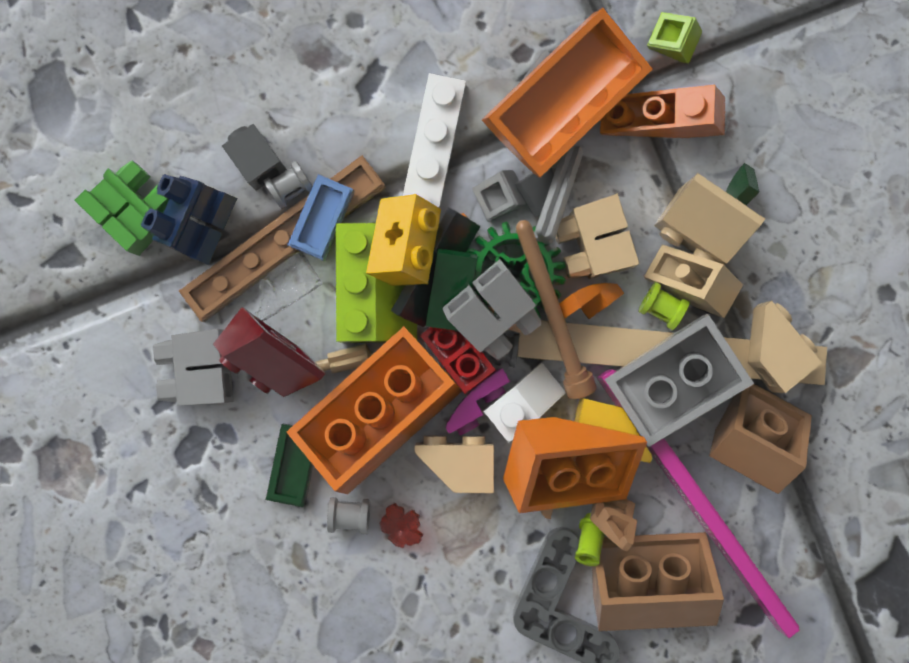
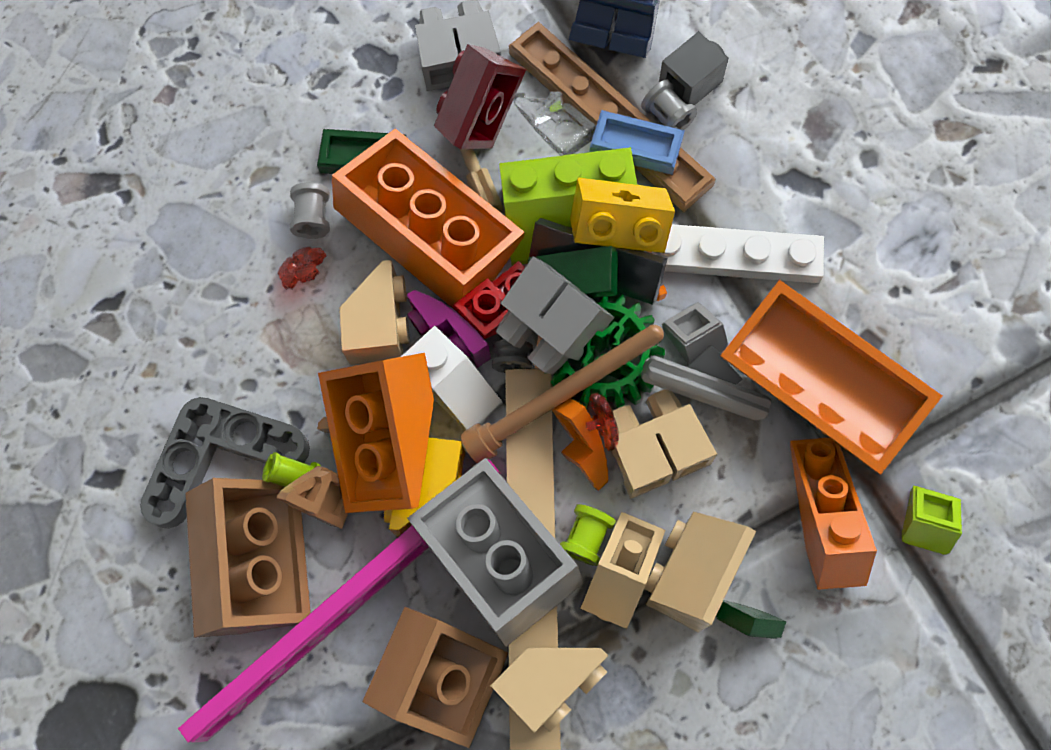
camera: 85 degrees right, 15 degrees down
(582, 280) = (604, 421): none -> clear red plant

